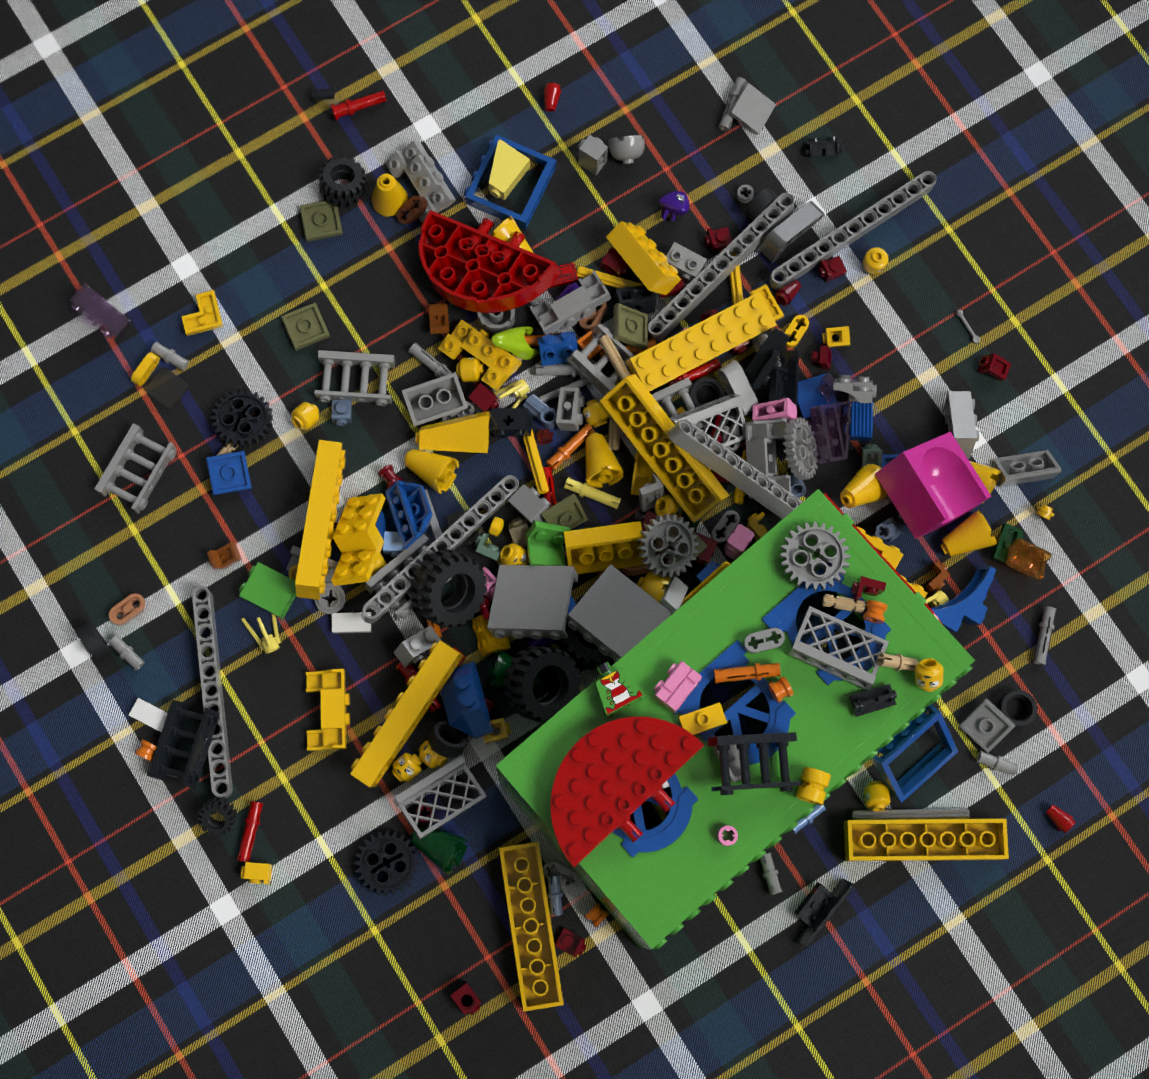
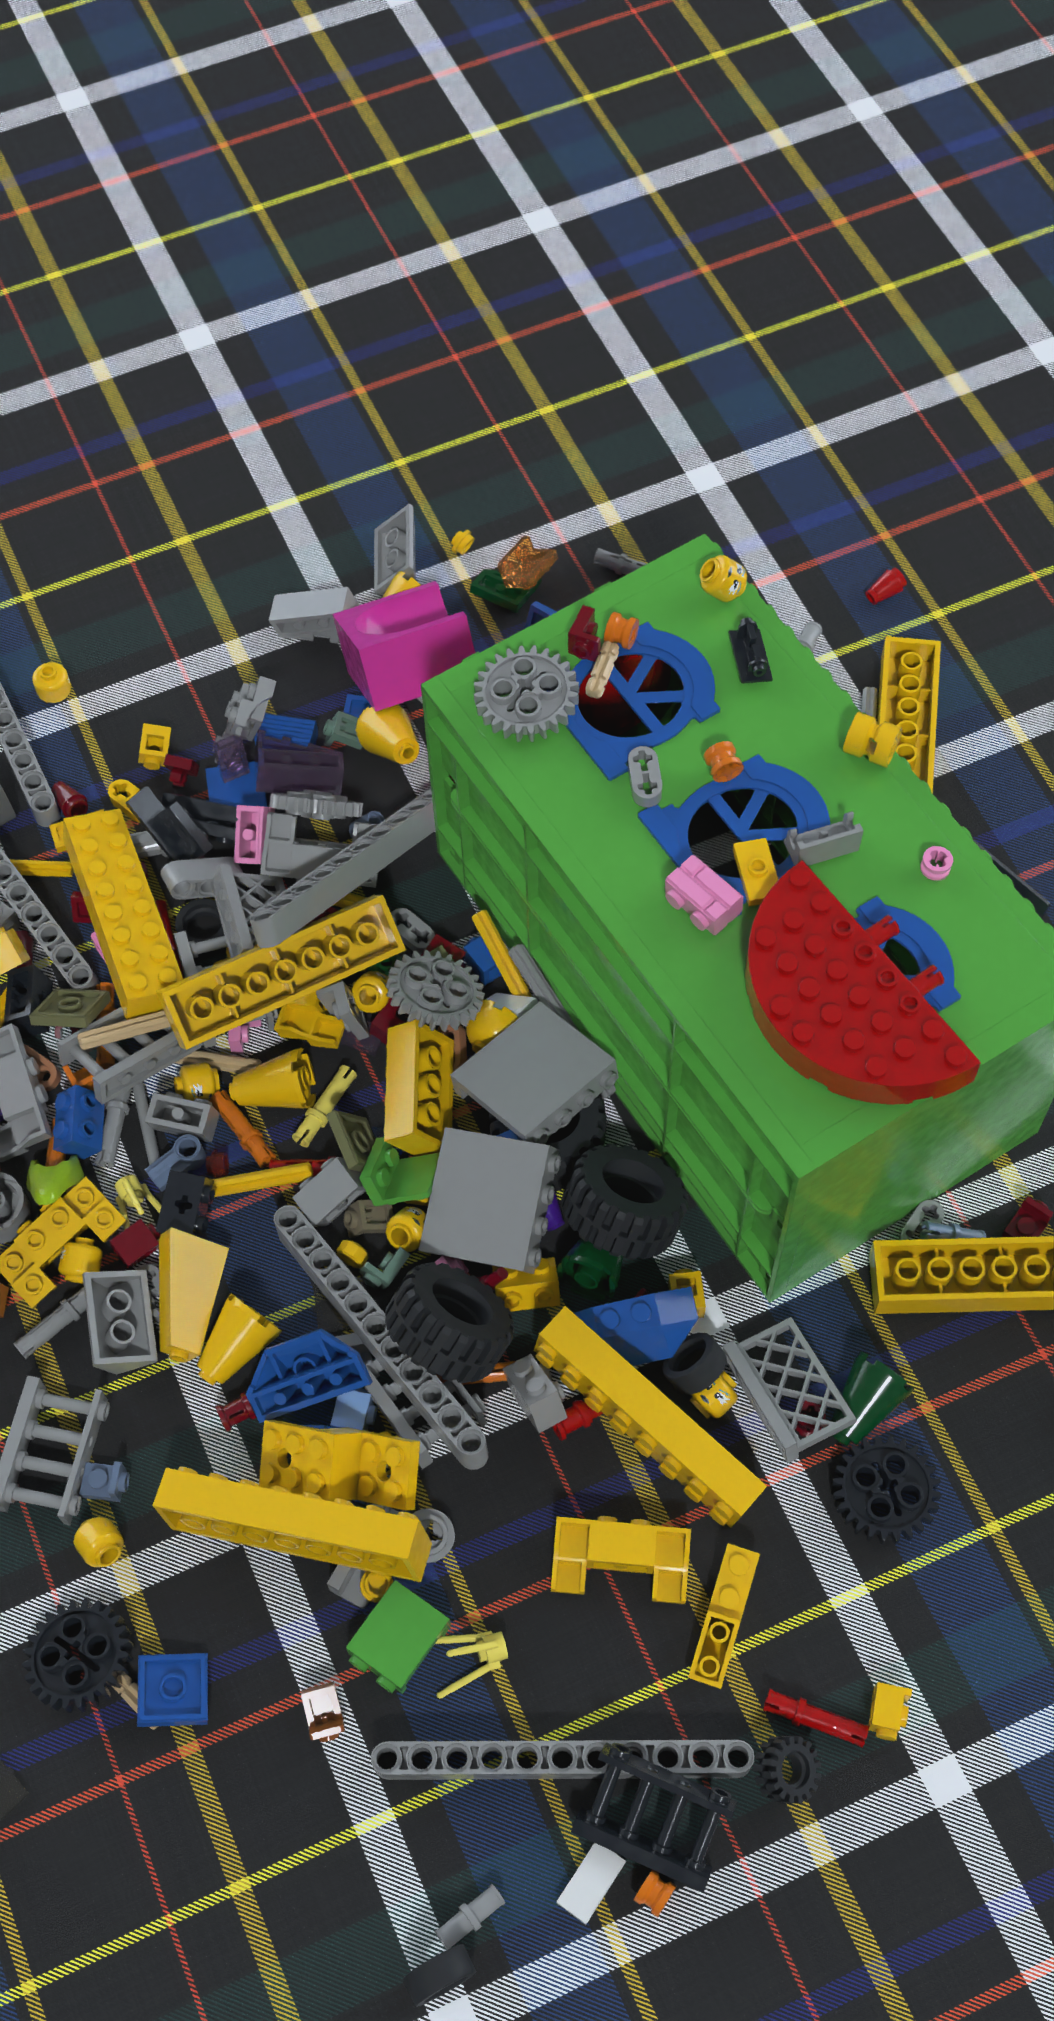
camera: 75 degrees left, 15 degrees down
(126, 452) = (94, 1880): light grey fence -> none
(127, 608) = (389, 1908): nougat plate -> none
(300, 773) = (724, 1616): none -> yellow slope
(350, 623) = (474, 1505): white tile -> none
(406, 767) = (733, 1435): yellow head -> none
(597, 915) = (987, 1180): orange wheel -> none
(616, 690) = (699, 981): torso -> none
(738, 542) = (441, 907): bright pink brick -> none
(742, 744) = (805, 808): black fence -> none
(748, 672) = (692, 790): orange pin -> none
(758, 530) = (424, 888): yellow bracket -> none
(828, 662) = (688, 700): light grey fence -> none
(831, 269) = (47, 742): dark red bracket -> none
(897, 662) = (699, 614): tan axle -> none
(969, 536) = (483, 617): yellow cone -> none
(975, 339) = (197, 587): light grey hinge -> none
(994, 366) = (240, 569): dark red bracket -> none

